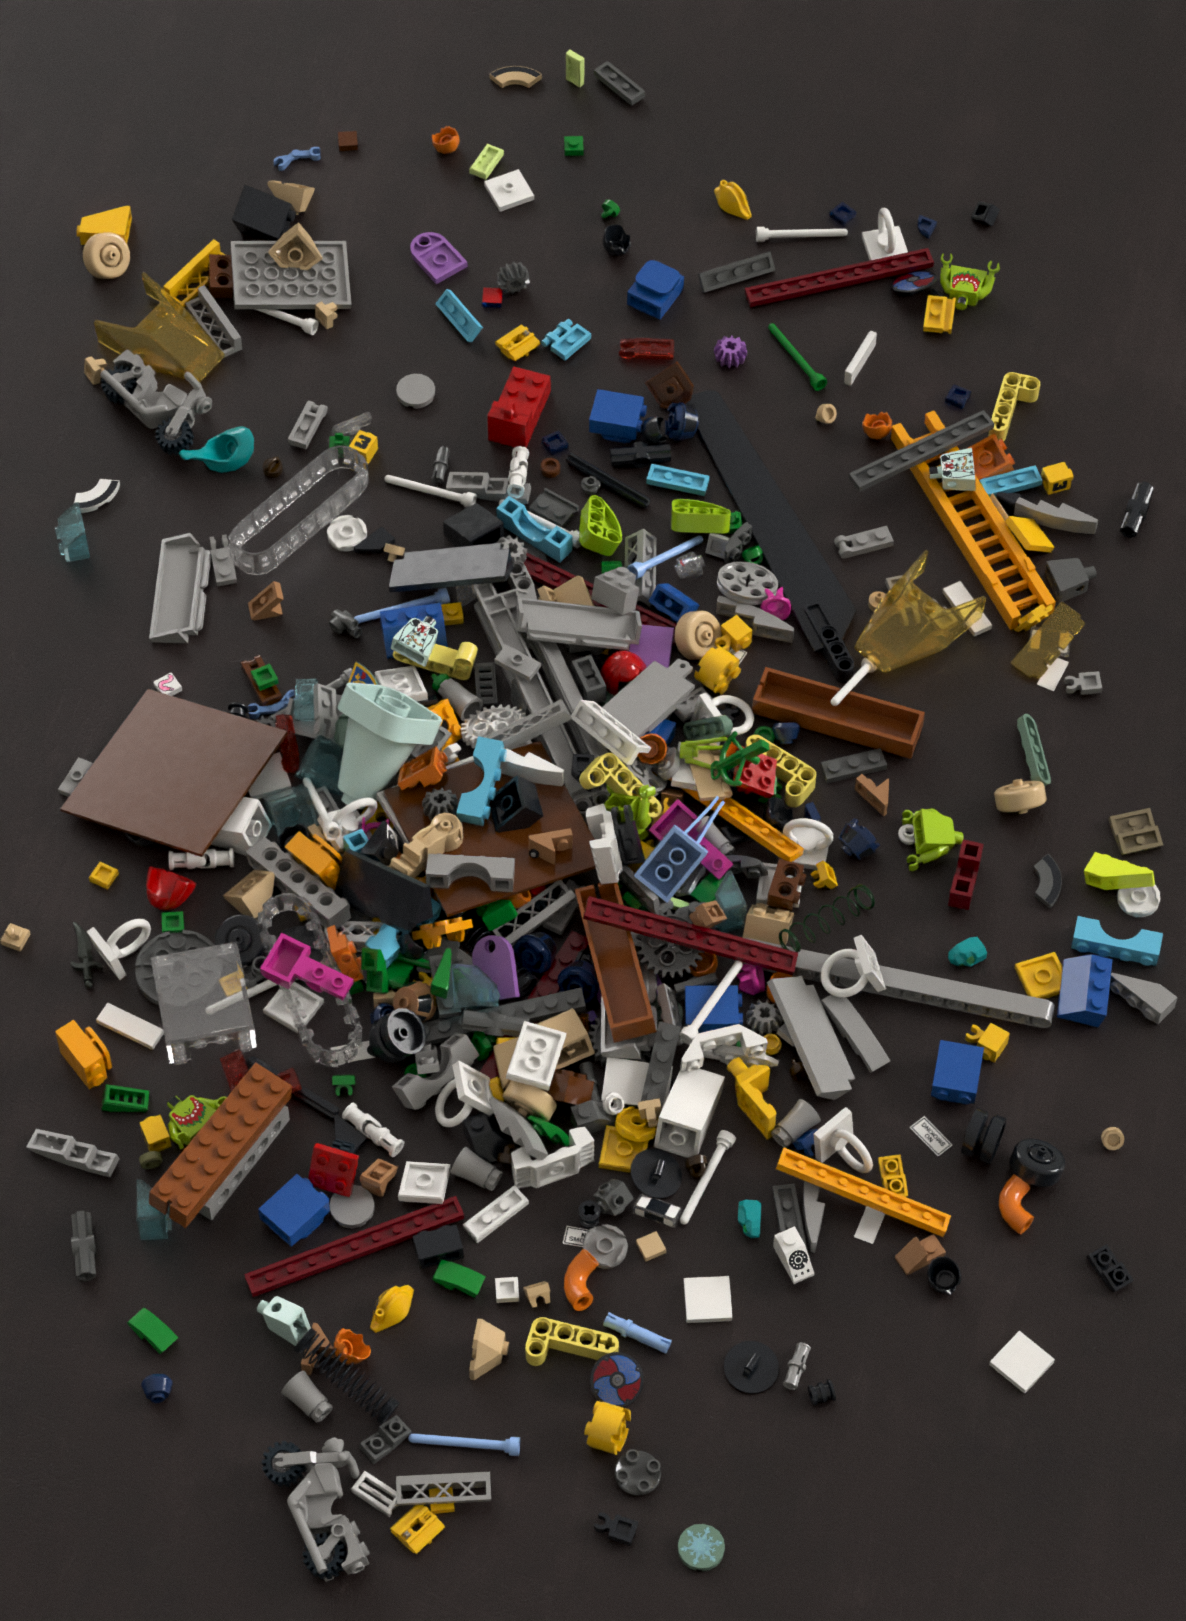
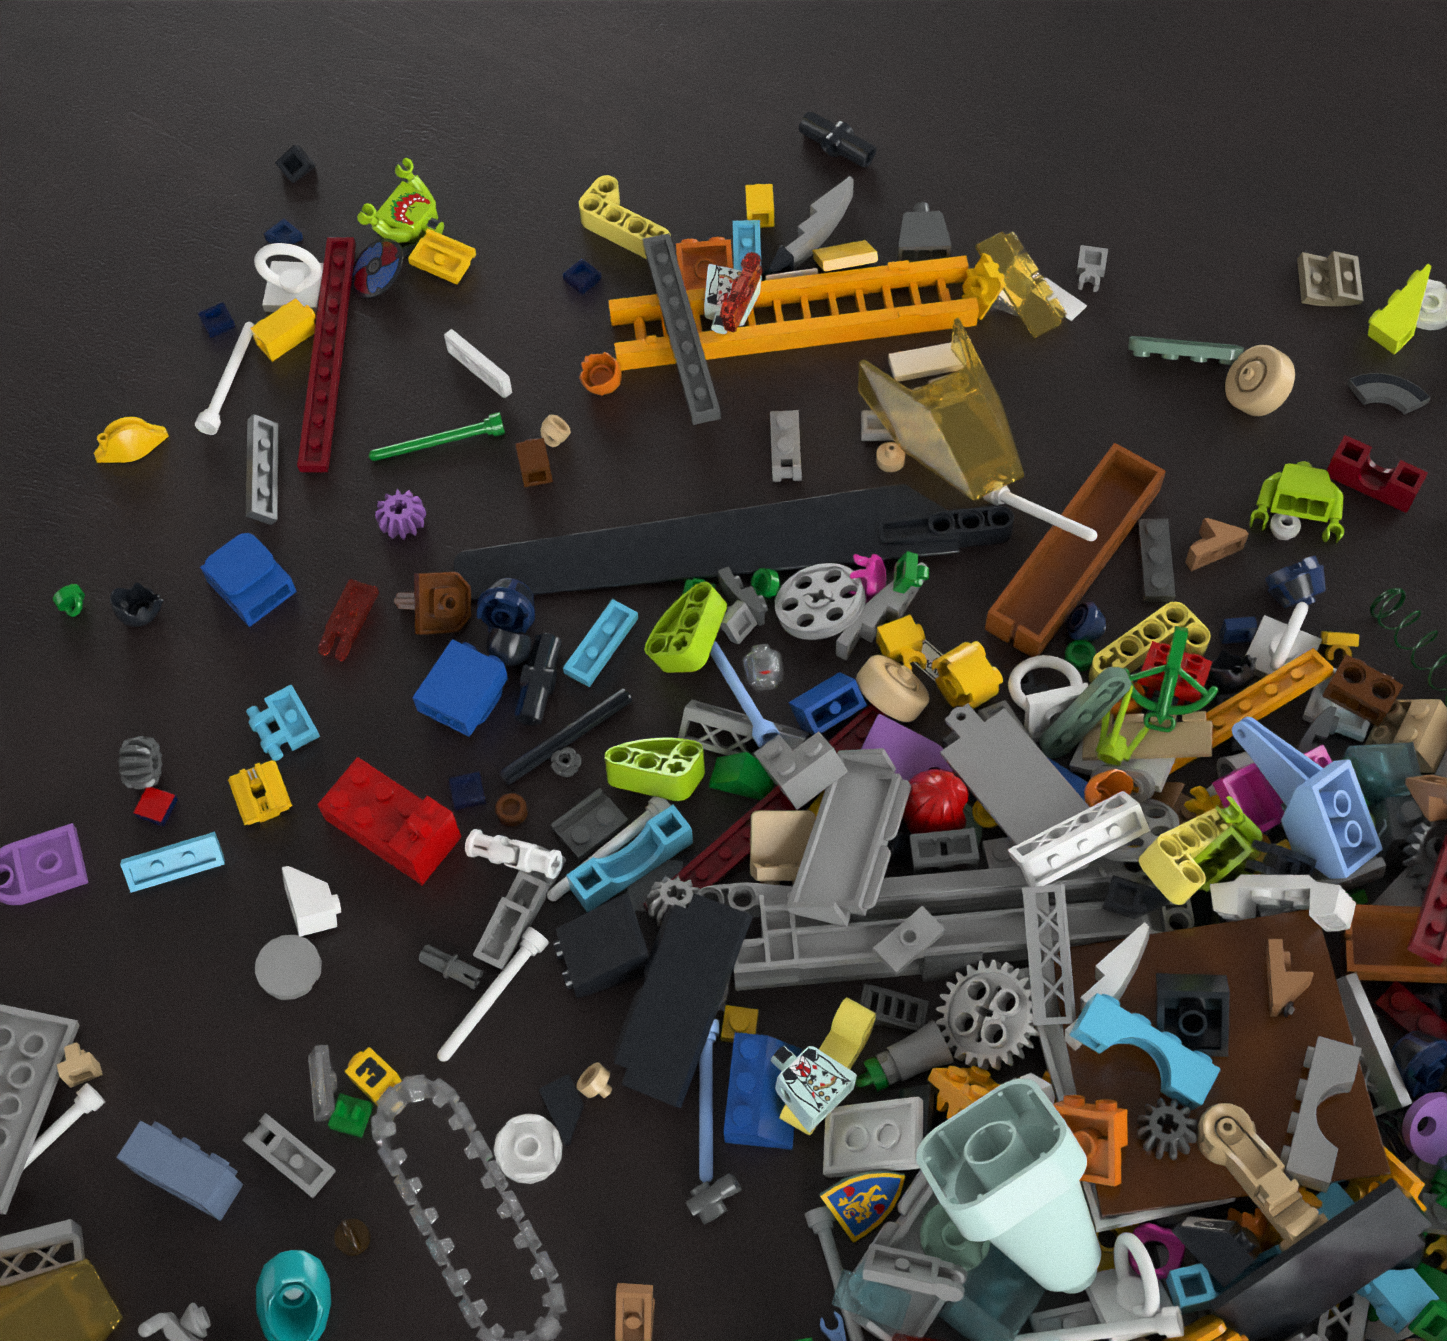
camera: 70 degrees left, 5 degrees up
(281, 375) = (181, 1168): none -> sand blue brick
(454, 385) = (310, 902): none -> white slope
(777, 617) = (908, 573): none -> green tile
(796, 408) = (534, 462): none -> reddish brown brick
(845, 248) = (284, 329): none -> yellow brick
(952, 469) = (741, 292): none -> clear red hinge

